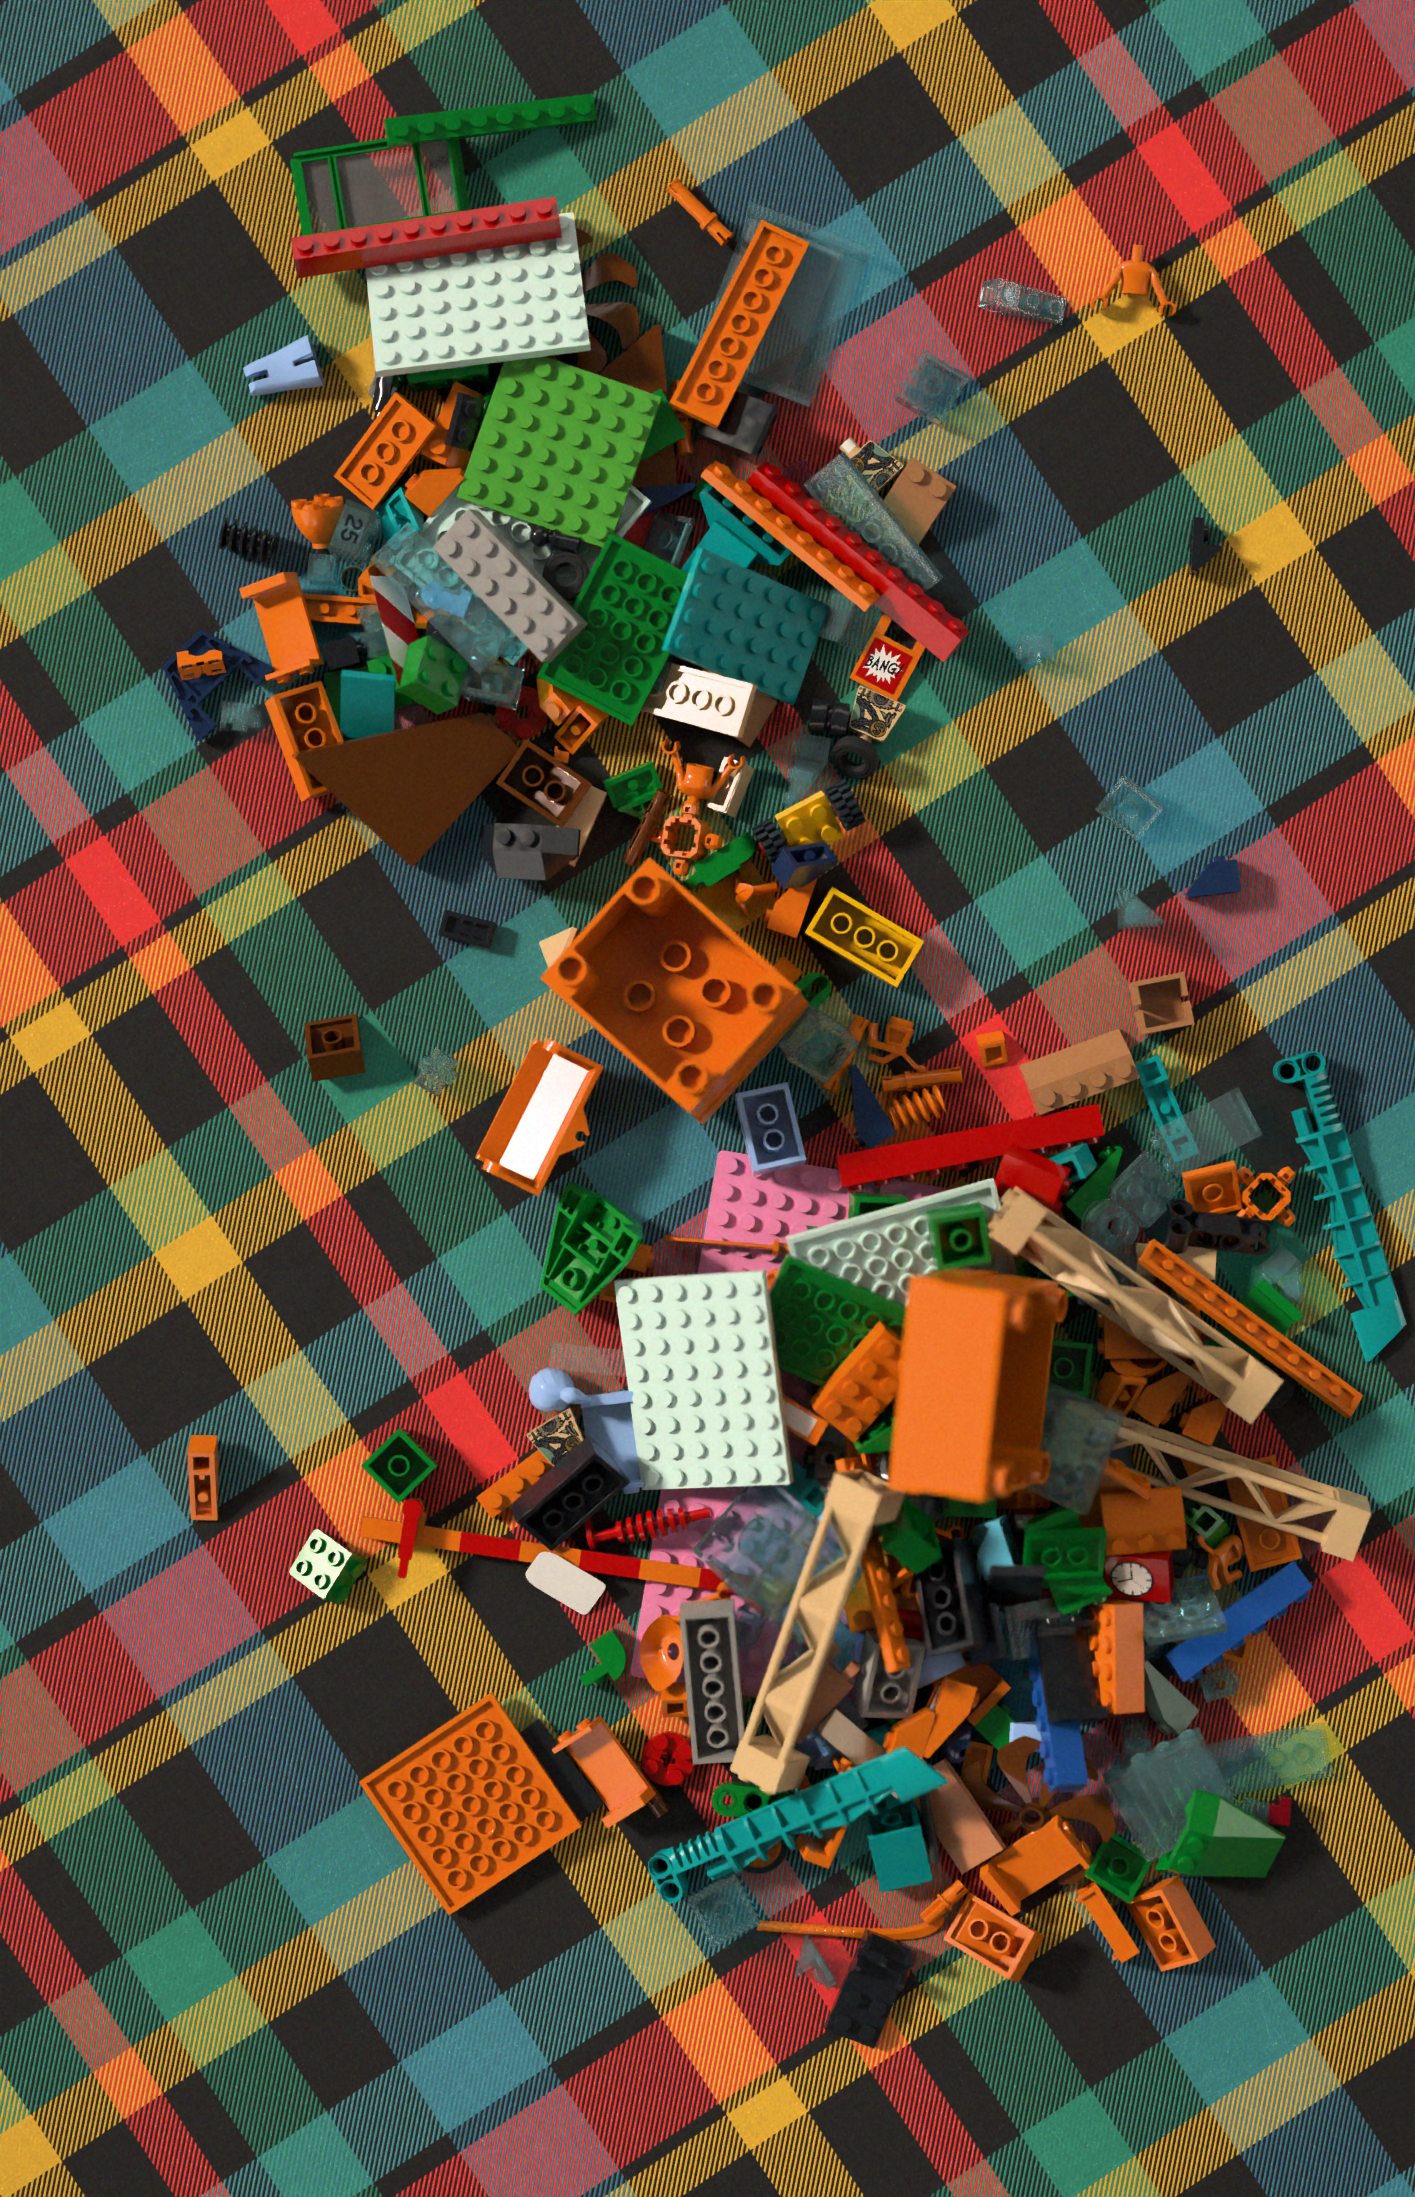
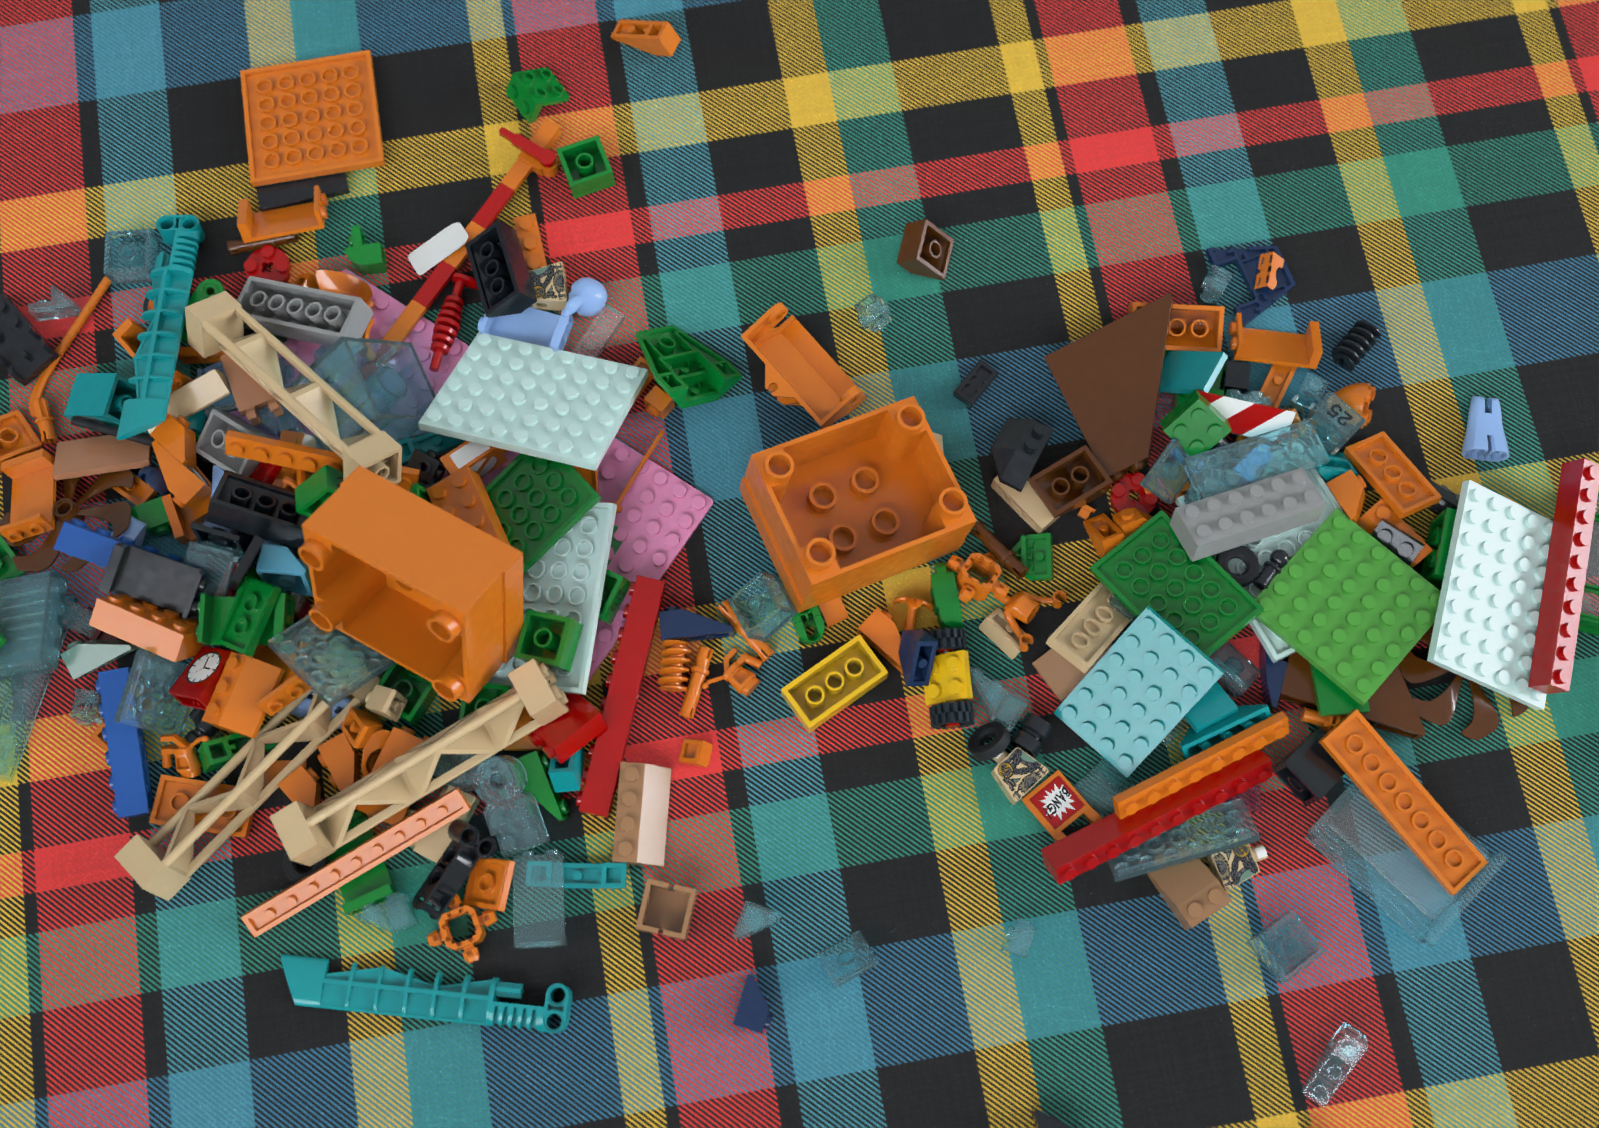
camera: 115 degrees right, 15 degrees down
(707, 220) = (1501, 818): orange pin -> none
(770, 1129) = (711, 541): light blue brick -> none
(1088, 1374) = (385, 702): none -> tan slope

